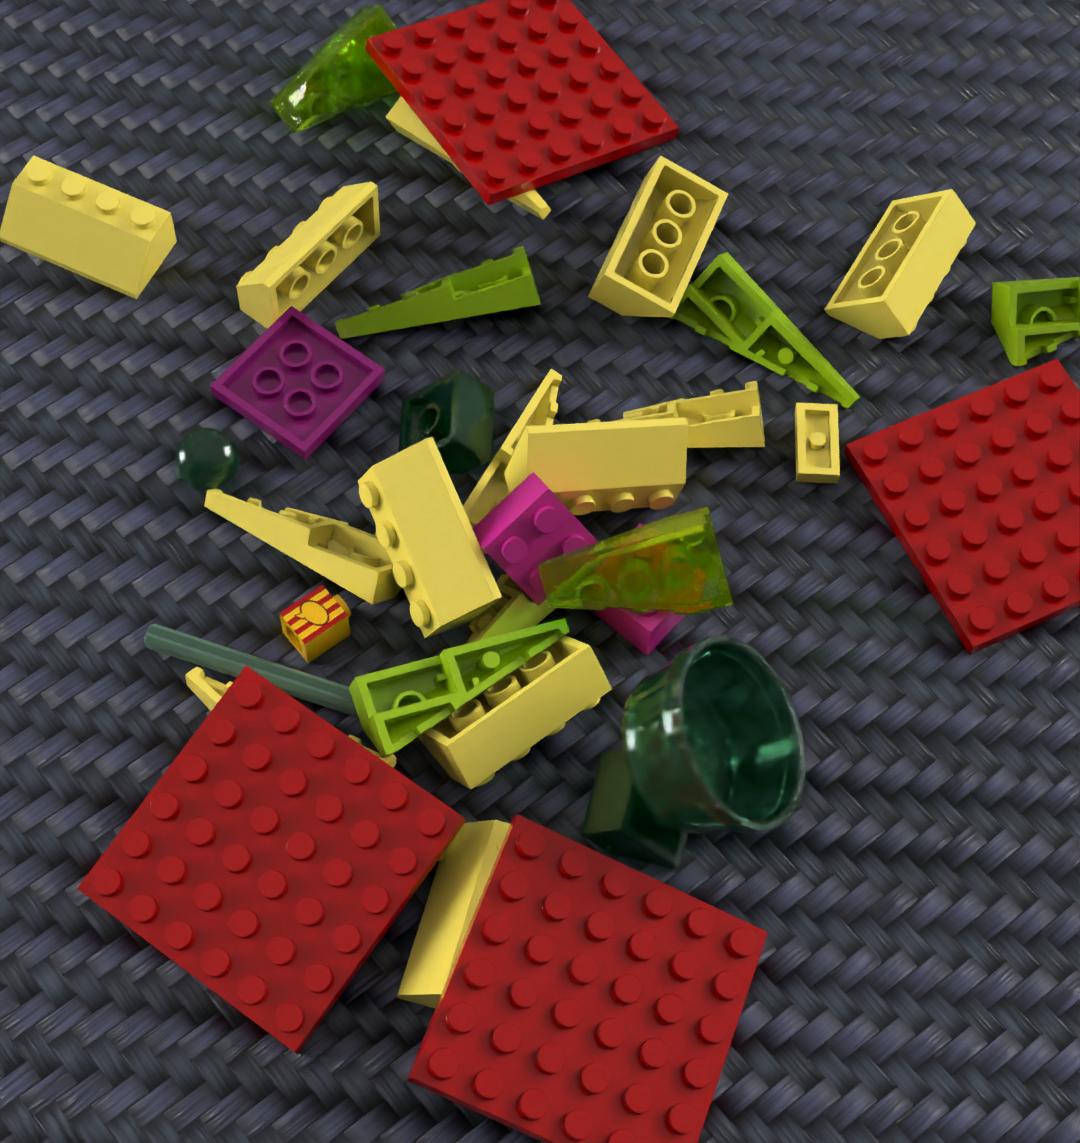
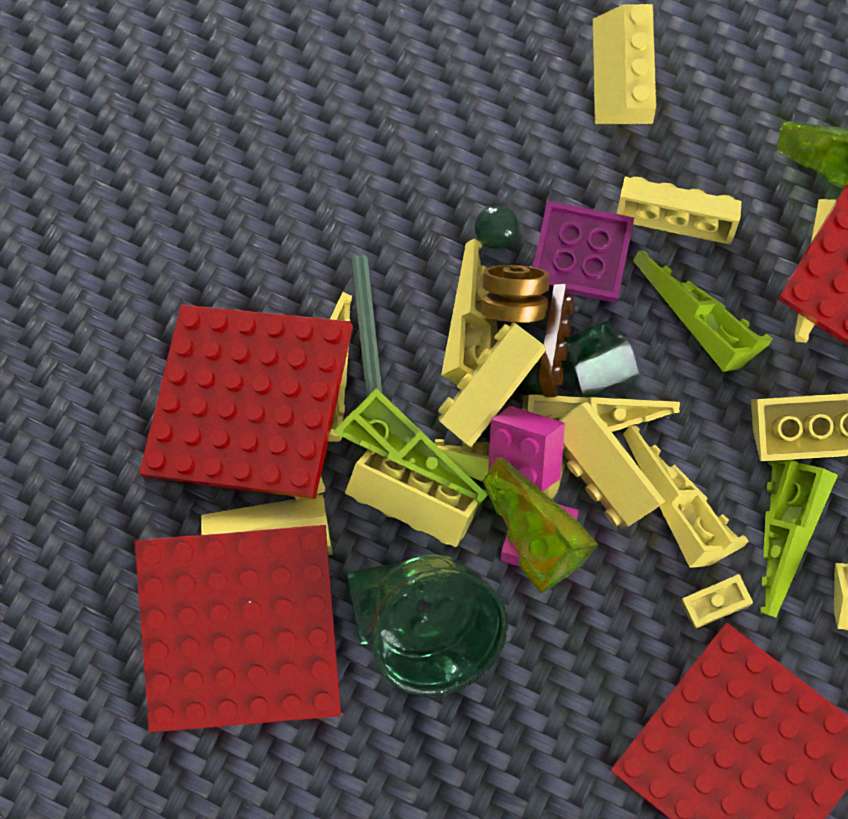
camera: 70 degrees right, 10 degrees up
(316, 623) = (414, 349): yellow brick -> none
(319, 464) = (515, 293): none -> pearl gold wheel
(390, 440) = (557, 330): none -> reddish brown plate

